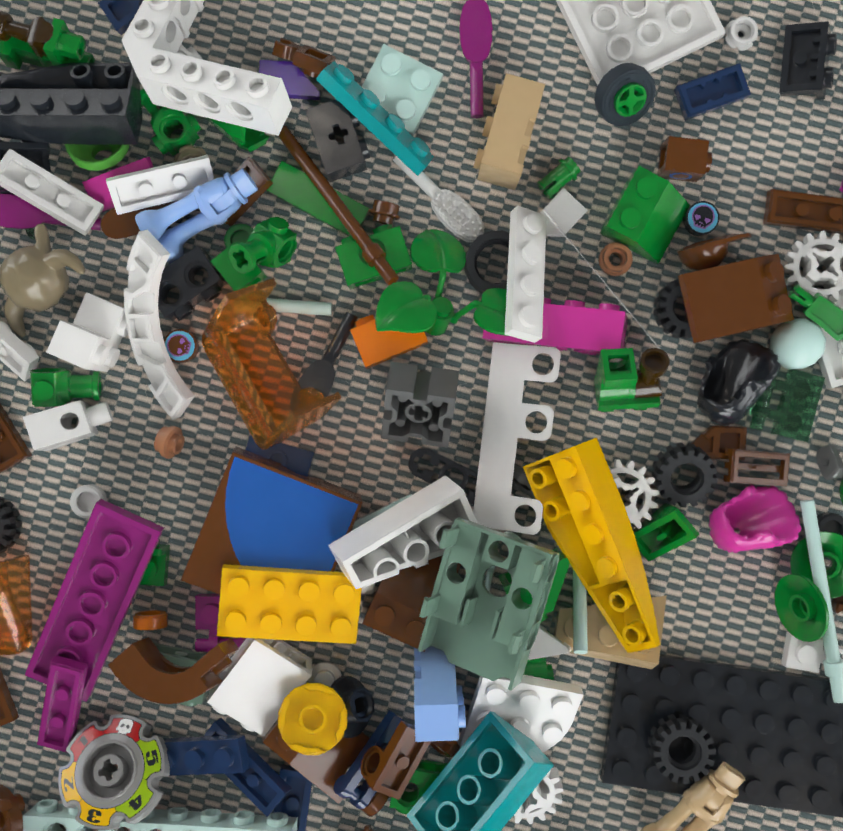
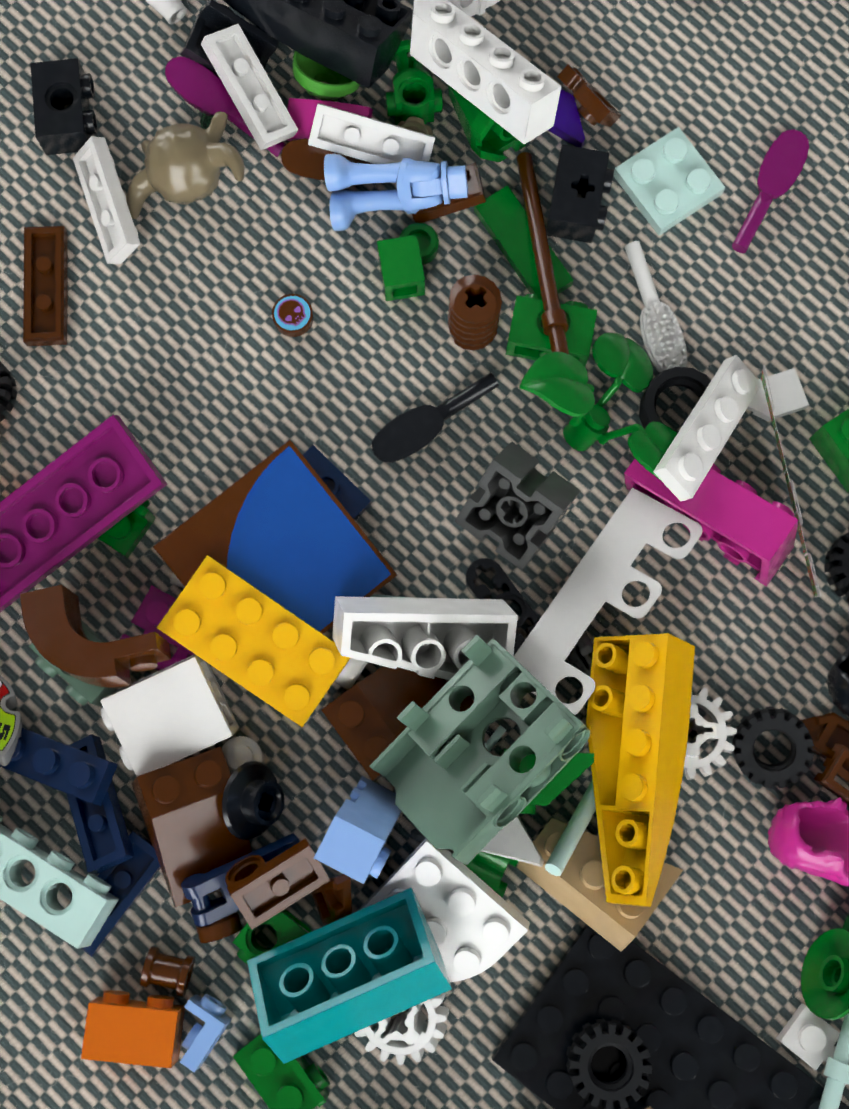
camera: 25 degrees right, 10 degrees down
(54, 428) = (112, 321): white torso -> none
(58, 386) = (144, 287): green connector -> none
(85, 498) = (93, 415): white tile -> none
(93, 336) = (209, 252): white brick -> none
(143, 324) = (268, 269): white tile -> none
(150, 620) = (88, 583): orange tile -> none
(169, 441) = (222, 405): nougat plate -> none
(181, 275) = (335, 242): black brick -> none
(255, 370) = (358, 375): clear orange windscreen -> none
(268, 245) = (443, 256): green connector -> none
(301, 307) = (424, 331): light aqua bar -> none
(304, 265) = (474, 312): none -> reddish brown piece
(312, 719) = (207, 781): yellow tile -> none
(367, 109) = (627, 177): teal plate -> none
(382, 346) = (520, 419): orange brick -> none
(384, 212) = (588, 291): reddish brown plate -> none
(509, 131) = (765, 279): tan wedge -> none
(560, 176) = (796, 354): green pin -> none
(625, 259) = (822, 466): nougat plate -> none
(625, 387) = (755, 610): green hips -> none
(664, 532) = (715, 800): green slope -> none

